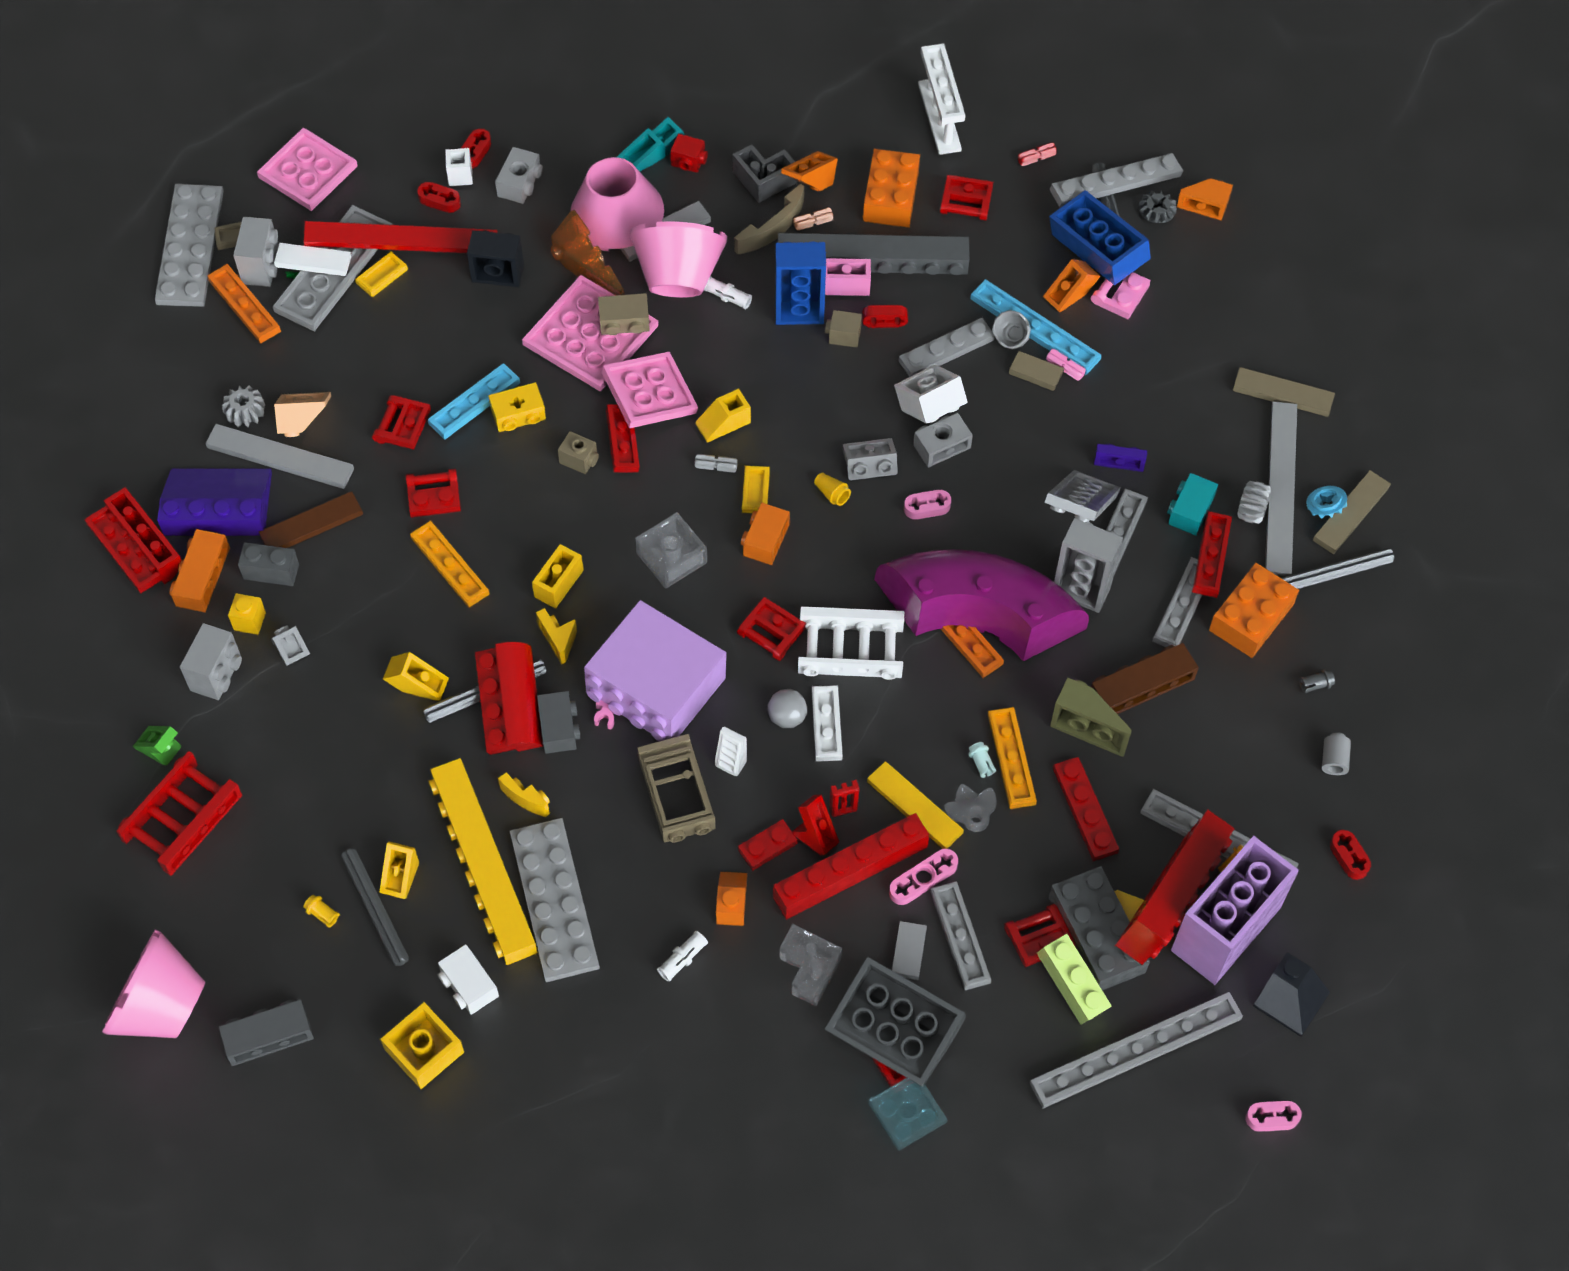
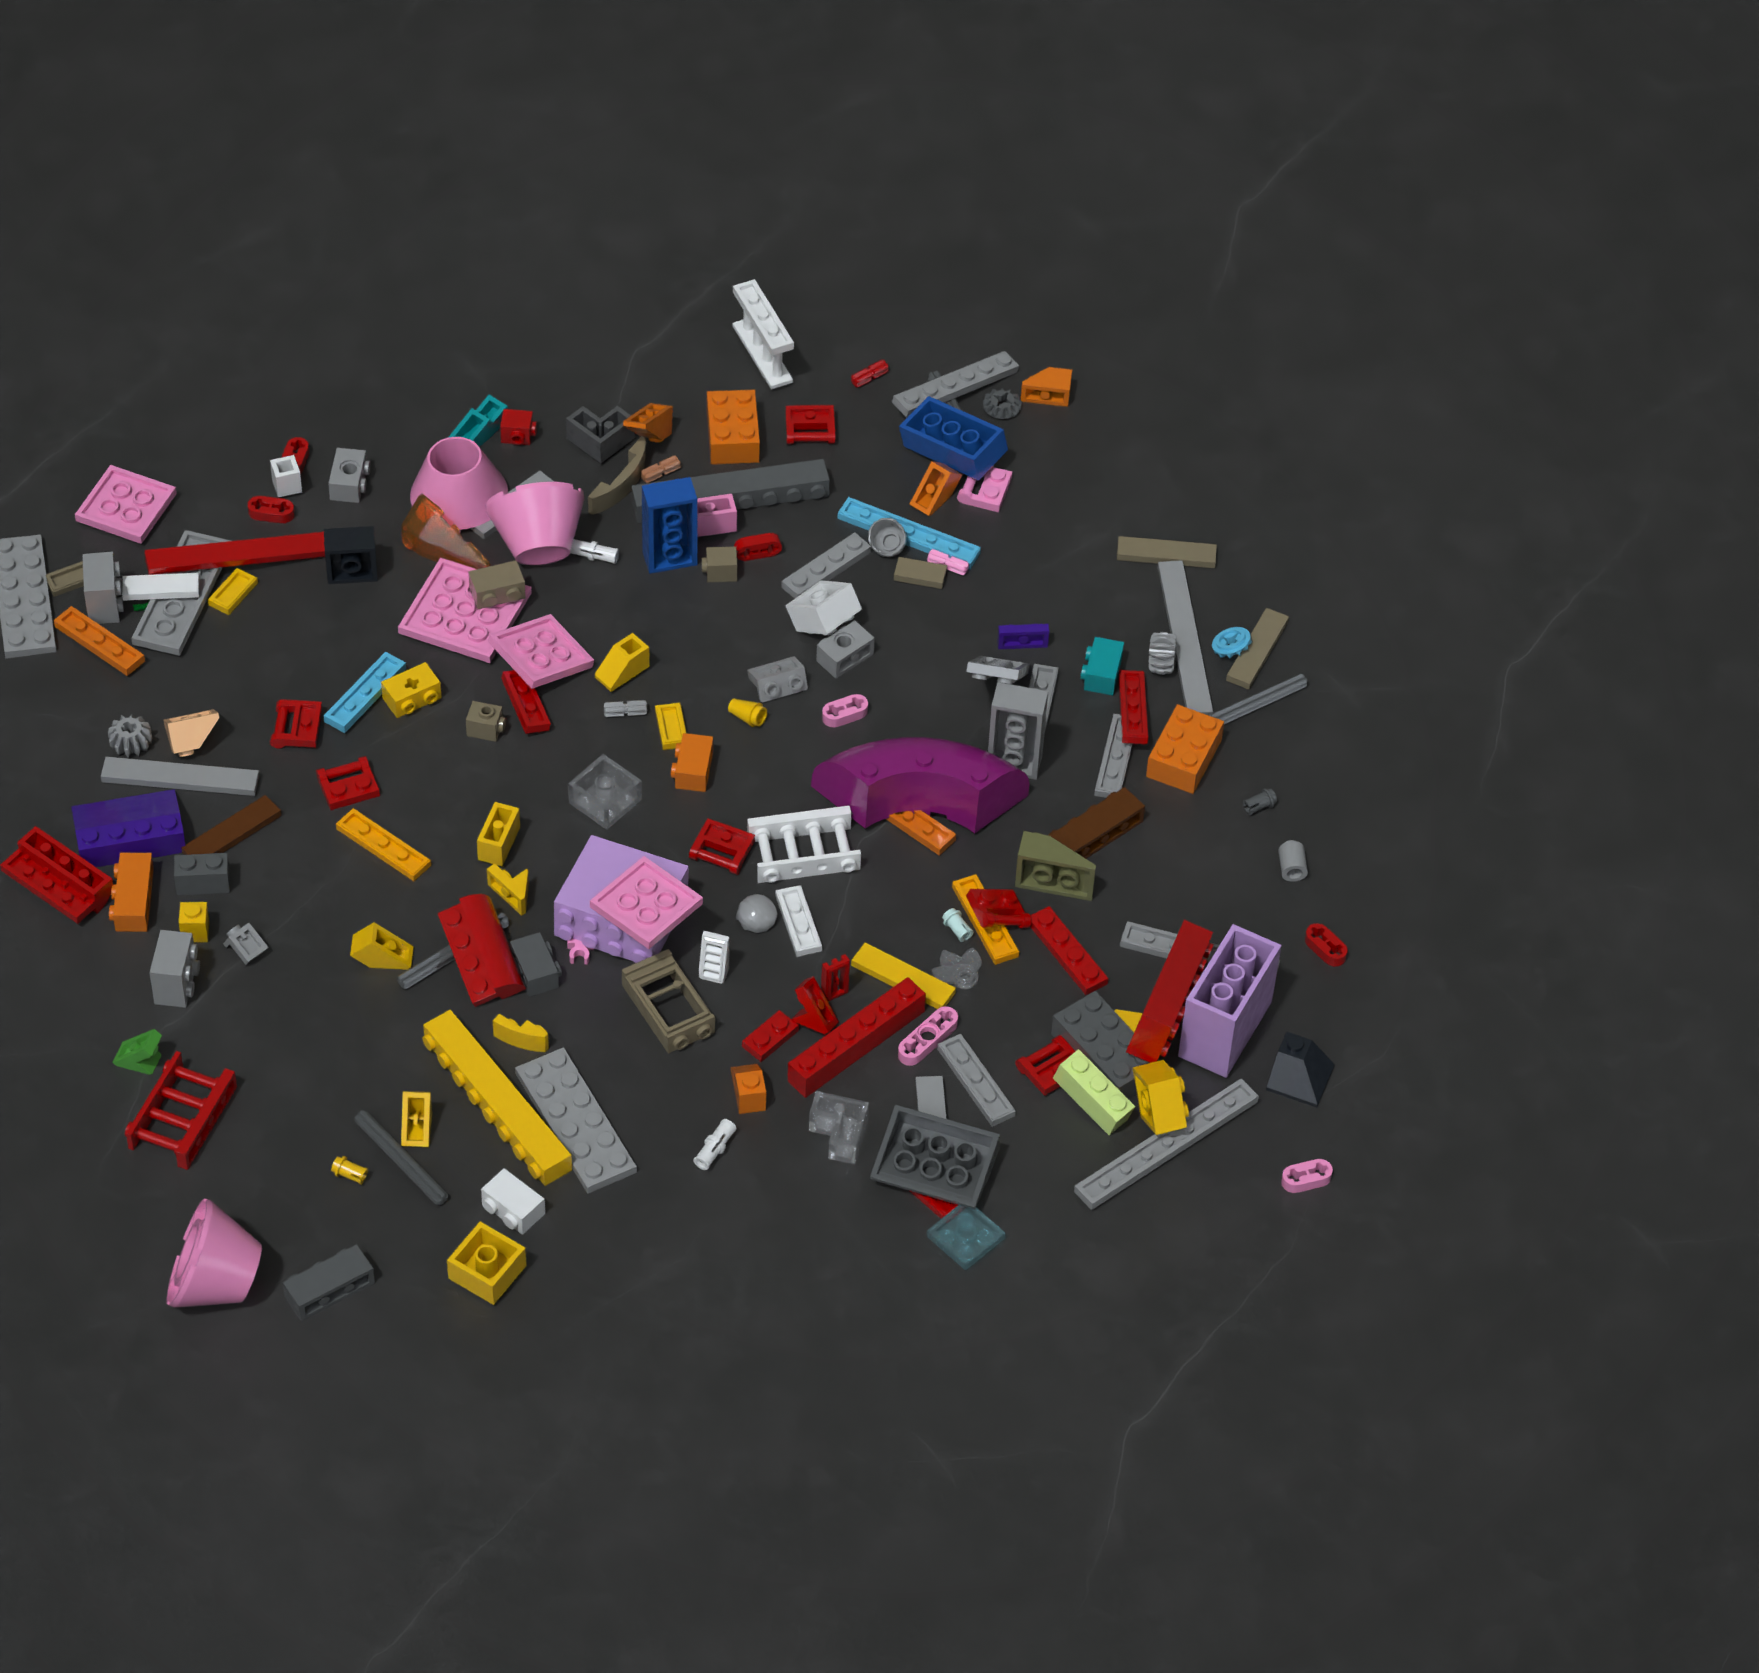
camera: 15 degrees left, 10 degrees down
(672, 687) = (646, 902): none -> bright pink plate
(1026, 744) = (998, 908): none -> red plate
(1140, 1002) = (1160, 1097): none -> yellow brick

